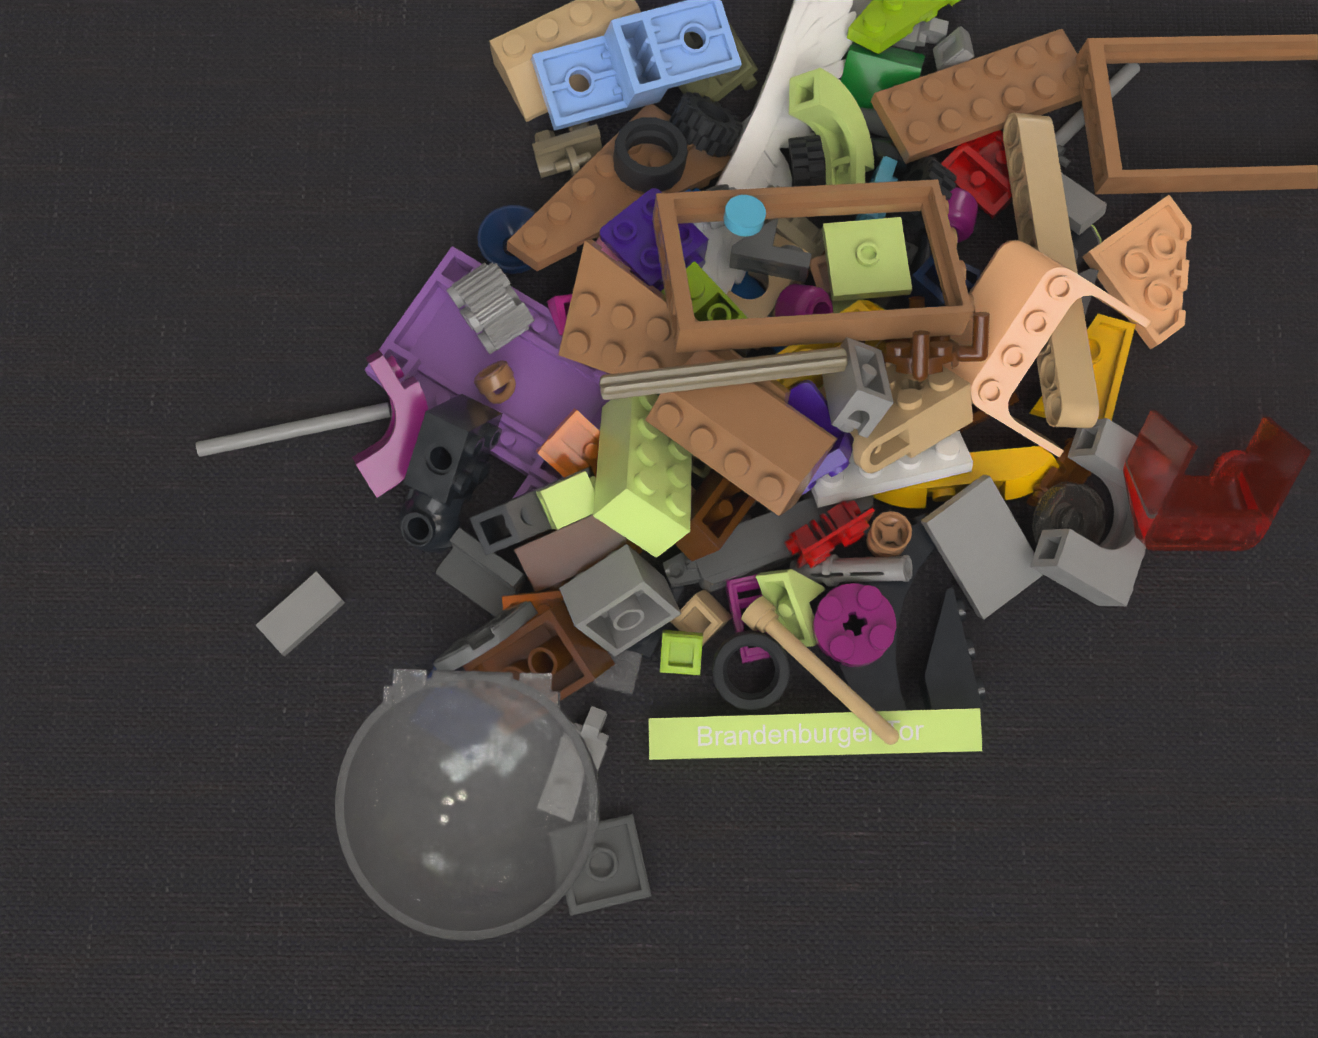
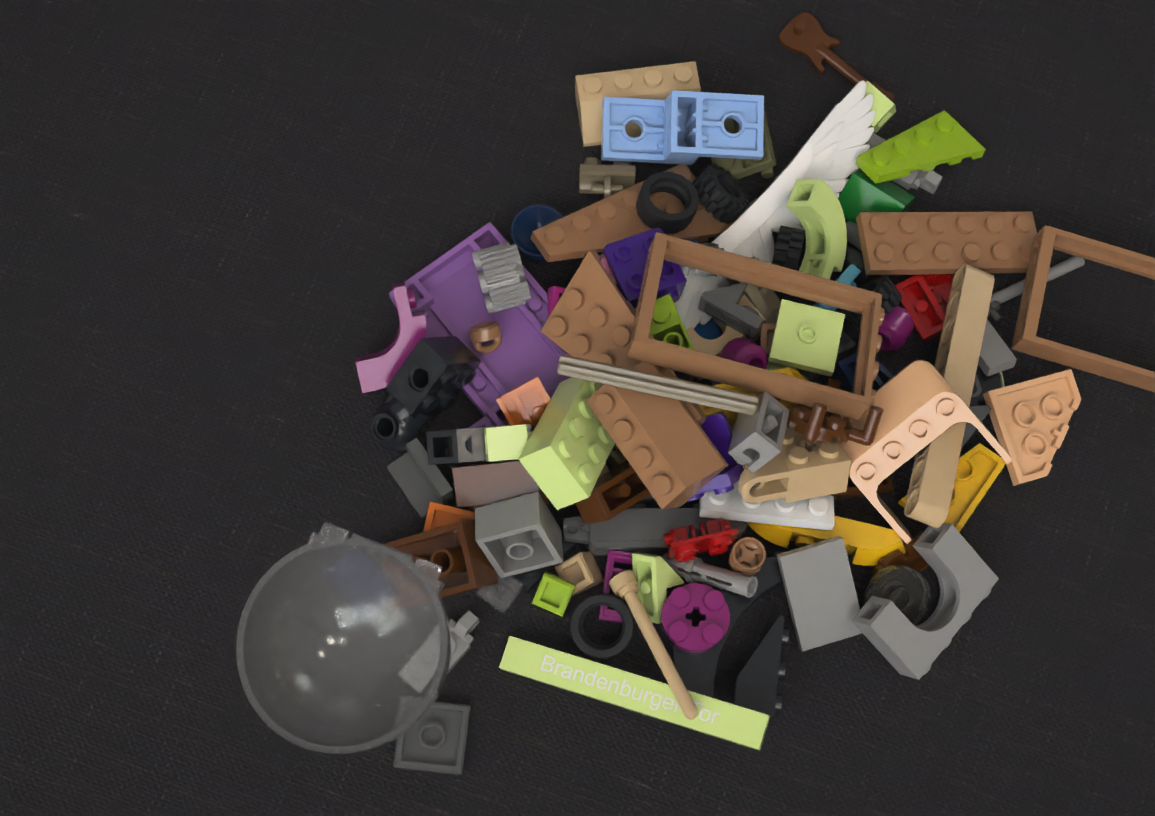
camera: 15 degrees right, 5 degrees down
(293, 429) = (319, 320): light grey piece -> none
(300, 614) = (272, 462): light grey tile -> none
(485, 637) = (408, 526): dark grey tile -> none
(744, 215) = (717, 271): medium azure tile -> none
(953, 49) = (938, 199): light grey tile -> none
(1213, 511) = (1008, 628): clear red windscreen -> none

